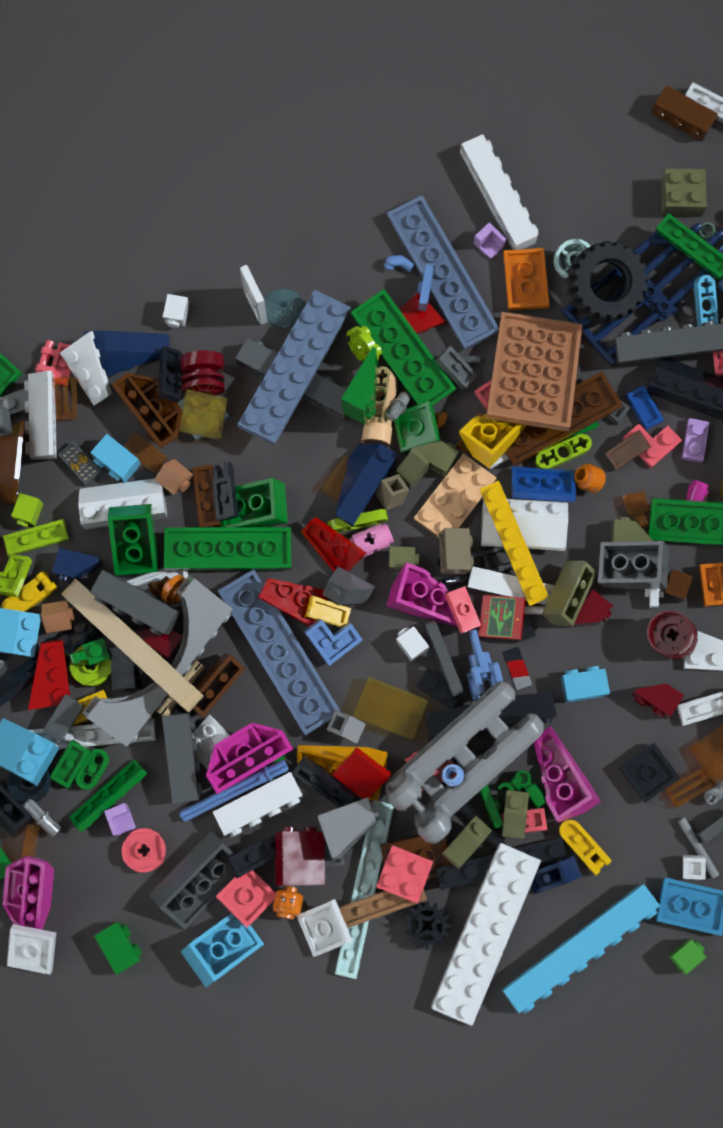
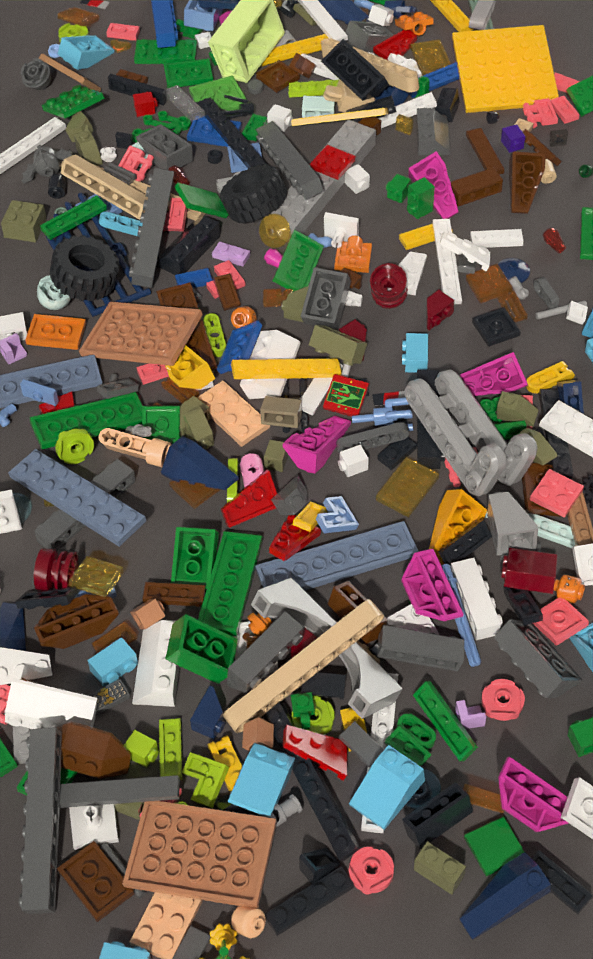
camera: 75 degrees left, 25 degrees down
(41, 818) = (463, 778): light grey axle -> none
(224, 492) = (178, 574): black hinge -> none
(346, 726) = (417, 517): light grey brick -> none
(360, 396) = (119, 440): green slope -> none
(361, 773) = (464, 506): red tile -> none
(392, 492) = (214, 445): dark tan brick -> none
(448, 771) = (476, 432): light blue plate -> none
(462, 609) = (333, 419): coral plate -> none

